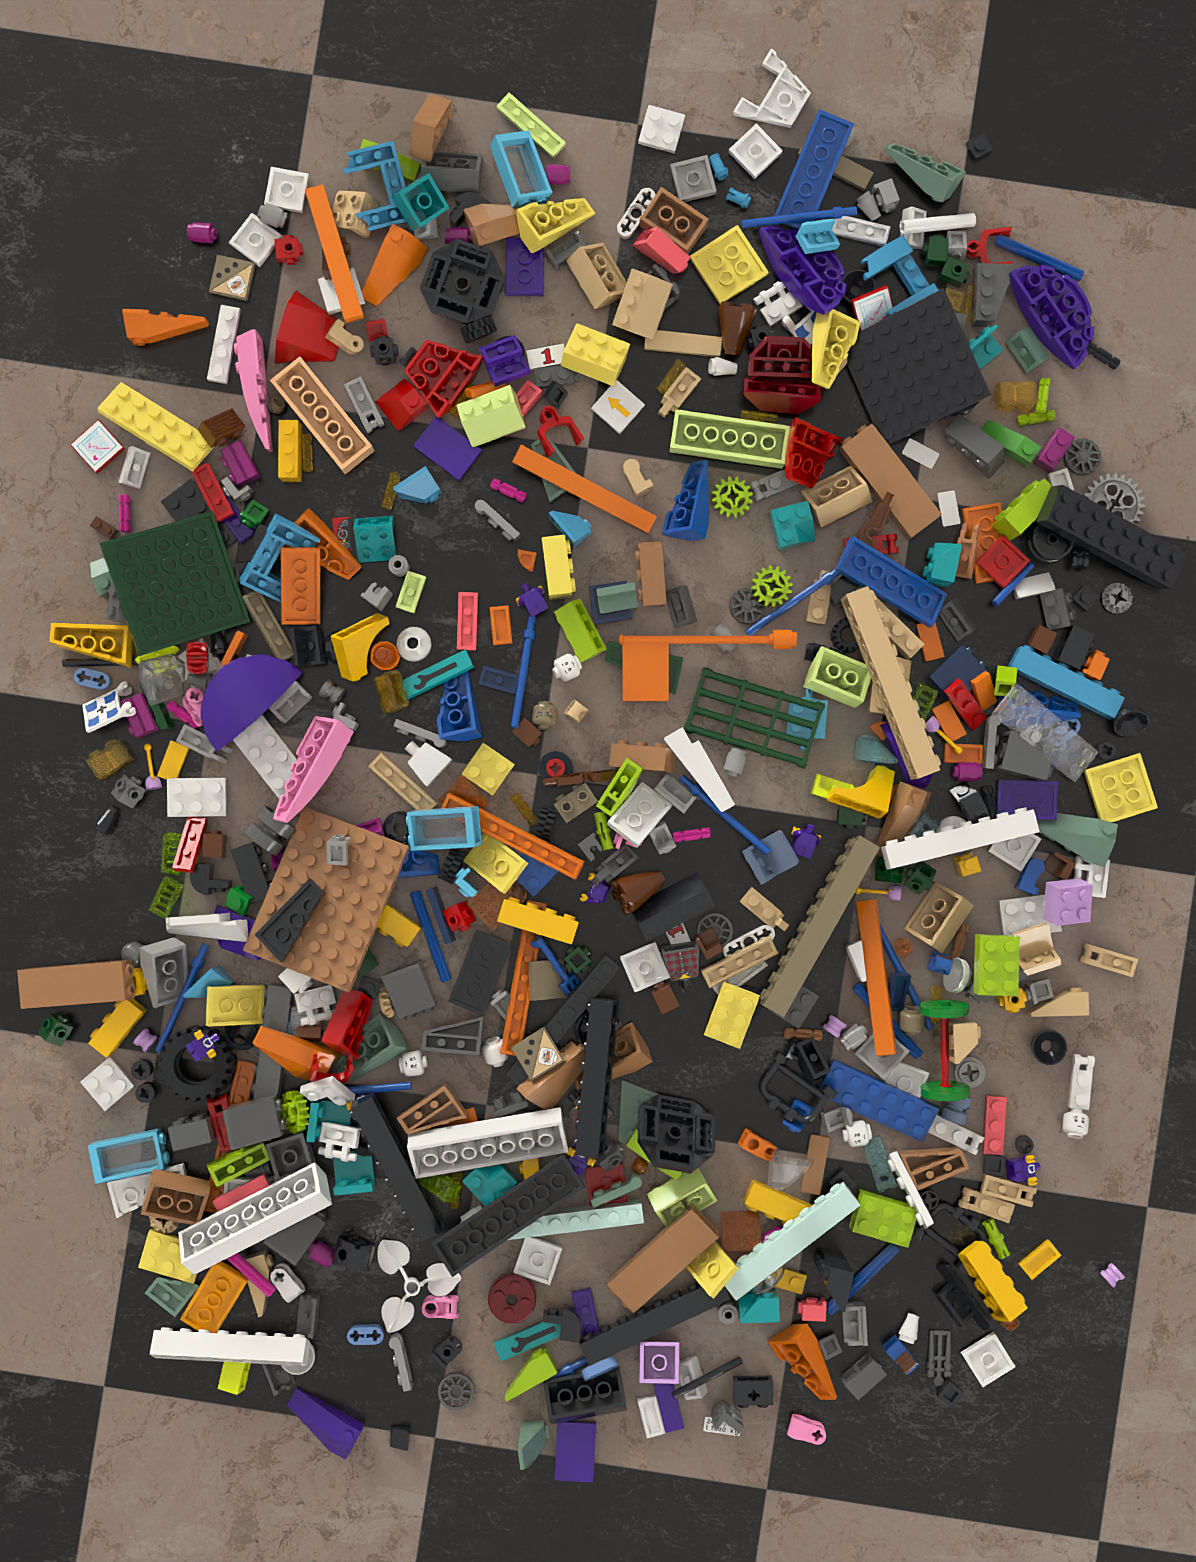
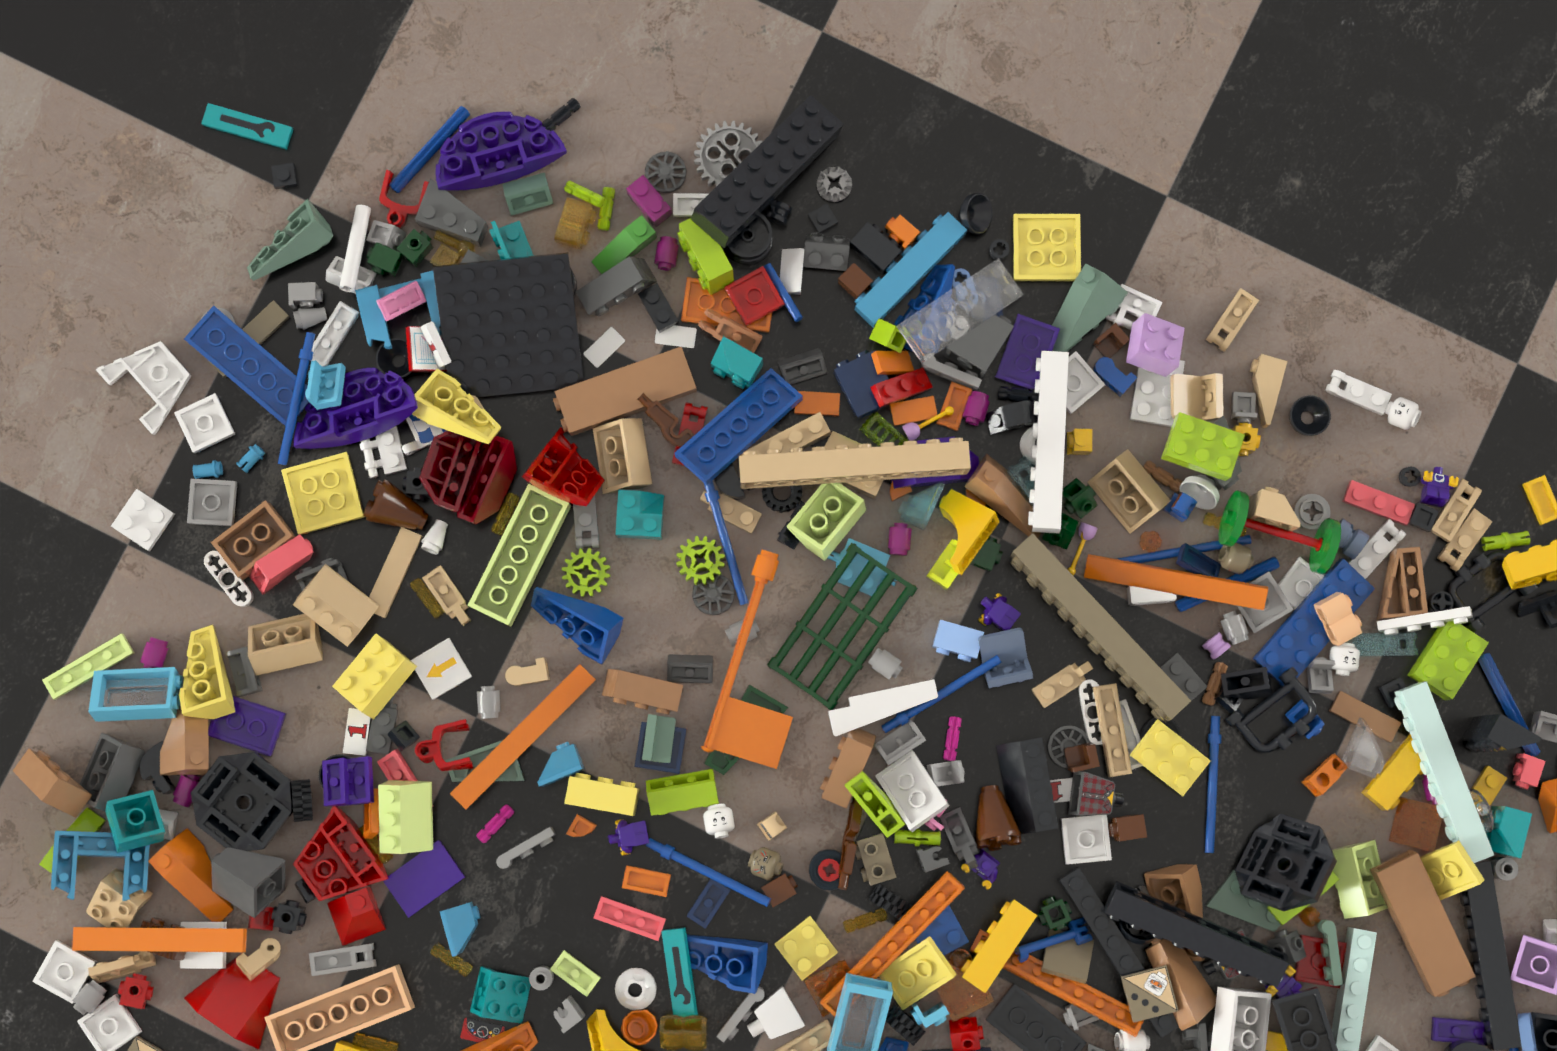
camera: 75 degrees left, 5 degrees down
(304, 233) = (122, 967): none -> tan hinge
(403, 307) = (248, 879): none -> dark grey slope
(603, 453) = (488, 702): none -> light grey brick
(757, 1047) = (1214, 739): none -> blue bar
(772, 814) = (957, 640): none -> light blue brick
(839, 742) = (899, 539): none -> magenta brick
(880, 313) = (435, 344): none -> white tile
(889, 1118) = (1338, 618): none -> light nougat brick
(906, 274) = (401, 300): none -> bright pink plate
(967, 486) = (658, 307): none -> black plate
(1010, 103) = (247, 126): none -> teal tile
(1015, 478) = (666, 253): none -> magenta brick

